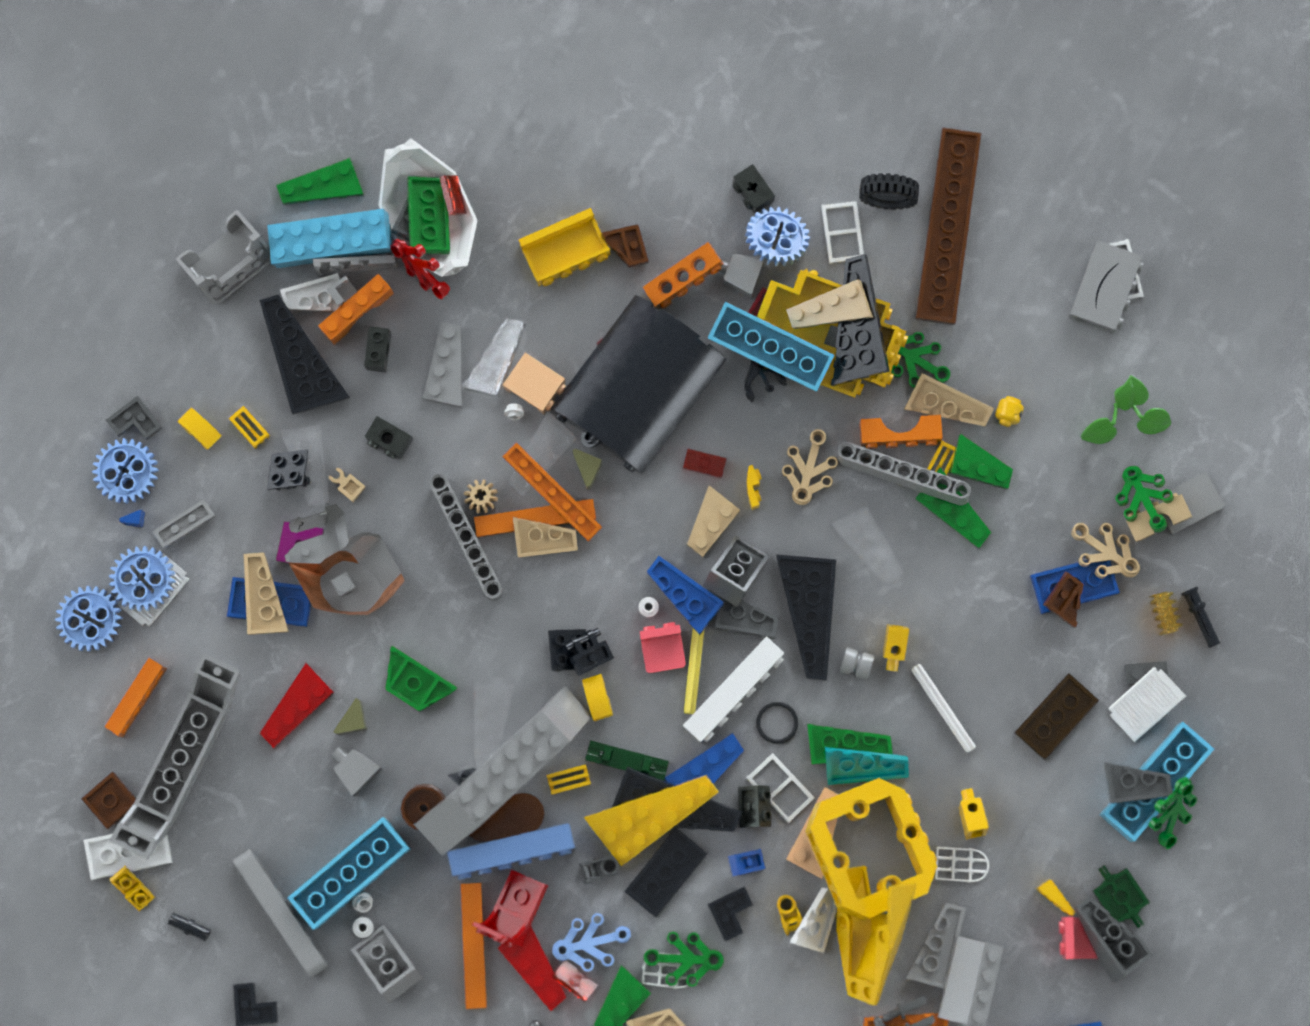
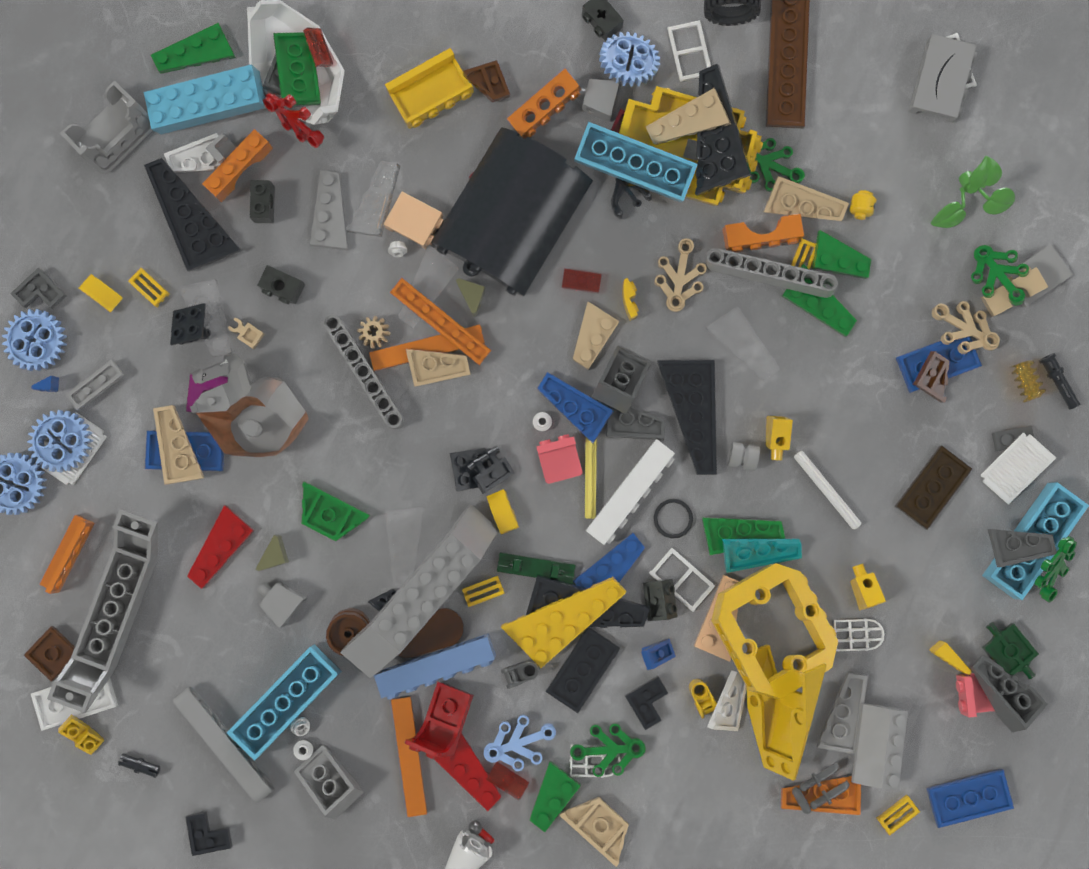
camera: 10 degrees left, 5 degrees up
(347, 265) = (230, 123): light grey wing -> none

